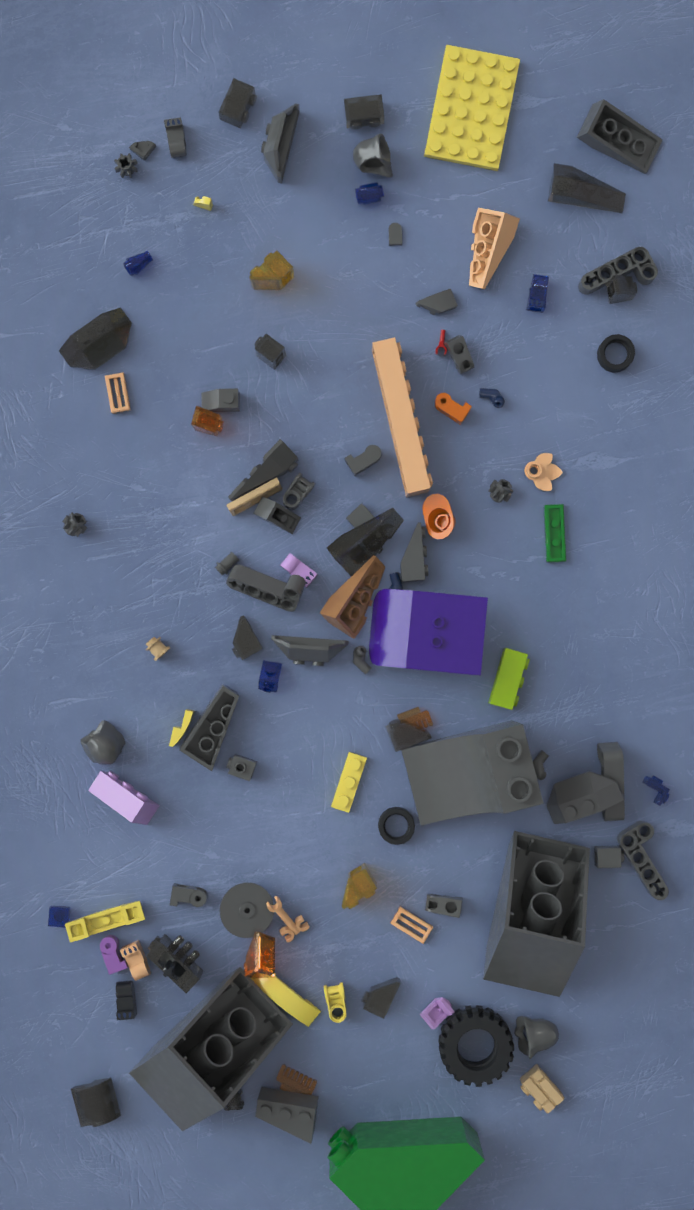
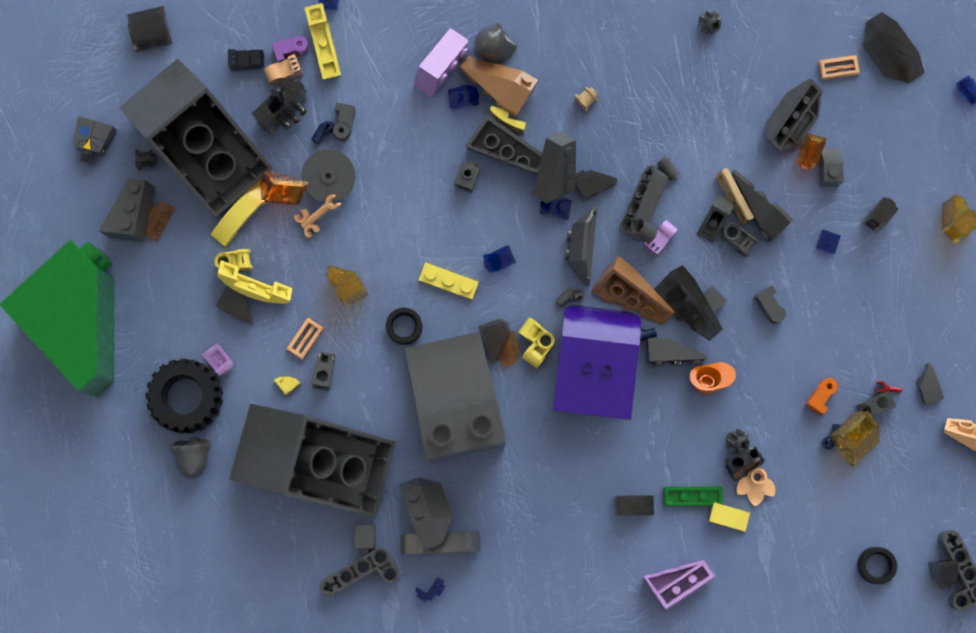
camera: 90 degrees right, 5 degrees down
(145, 733) = (506, 85): none -> medium nougat wedge
(158, 773) = (463, 96): none -> clear blue bracket
(171, 438) = (794, 116): none -> dark grey wedge
(197, 916) = (323, 129): none -> dark blue arm
(213, 1155) = (92, 138): none -> dark grey torso
(234, 676) = (558, 168): none -> dark grey wedge
(296, 402) = (828, 241): none -> clear blue plate
(326, 732) = (499, 259): none -> clear blue bracket
(363, 982) = (252, 288): none -> light yellow slope
(399, 695) = (536, 352): none -> light yellow piece
(400, 416) = (813, 341): light nougat brick -> none
(458, 941) = (287, 384): none -> light yellow tile
(492, 374) = (857, 436): none -> clear yellow slope
(509, 678) = (547, 443): lime brick -> none
(521, 483) = (743, 462): none -> black leg
(538, 293) = (938, 487): clear blue leg -> none
(538, 765) = (458, 469): dark grey arm -> none
(541, 1088) = (137, 460): tan brick -> none
(567, 591) = (634, 505): none -> clear smoke slope
(574, 497) = (729, 517): none -> light yellow slope
(642, 546) = (678, 583): none -> lavender wedge

